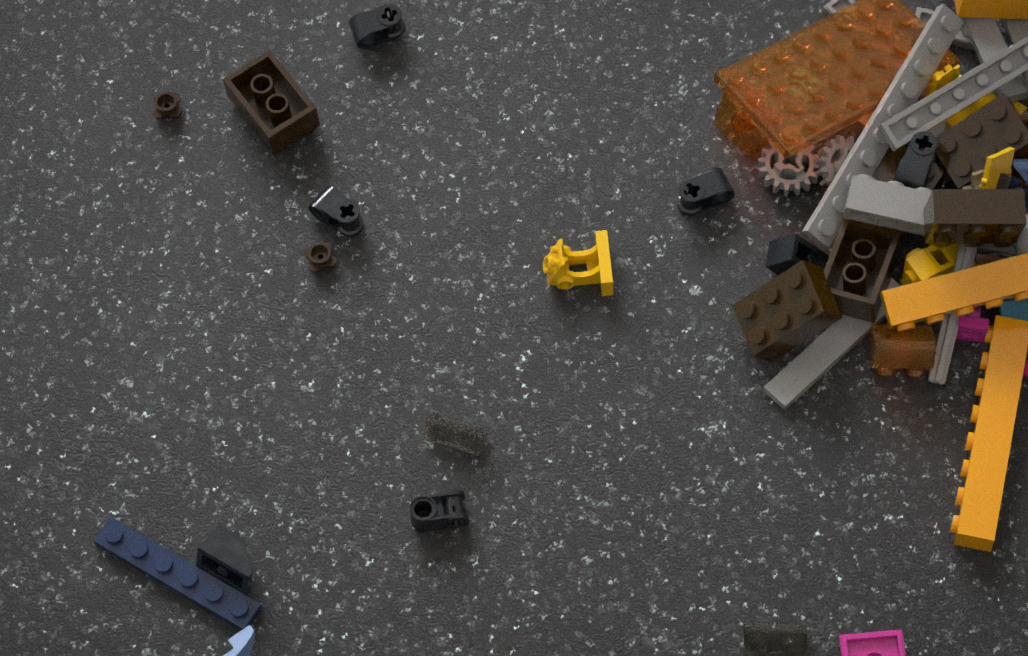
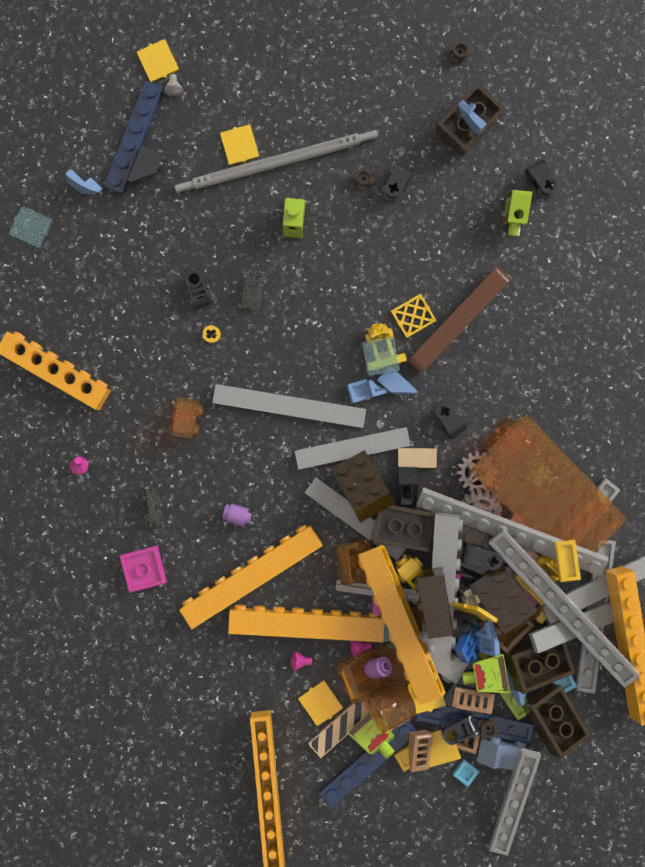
camera: 70 degrees right, 25 degrees up
(66, 522) = (158, 61): none -> yellow piece
(114, 501) = (173, 88): none -> light grey rock
(227, 423) = (239, 144): none -> yellow piece
(266, 377) = (276, 161): none -> light grey axle
(273, 90) = (470, 117): none -> medium blue slope
(356, 352) = (293, 217): none -> lime torso
(415, 60) = (517, 202): none -> lime torso
(510, 515) = (211, 328): none -> yellow bush
(547, 239) = (406, 304): none -> yellow window
(560, 159) = (459, 320): none -> reddish brown beam
(594, 262) = (380, 356): none -> clear light blue piece
(637, 256) = (396, 384): none -> medium blue slope
(638, 561) = (184, 417): none -> clear orange brick
(640, 301) = (364, 390): none -> medium blue slope
(645, 412) = (289, 406): none -> light grey tile
(726, 333) = (348, 448): none -> light grey tile
(755, 245) = (417, 457): none -> tan tile
(806, 507) = (237, 515): none -> medium lavender brick
(908, 502) = (251, 576): none -> light orange brick
(935, 52) = (567, 560): none -> yellow tile

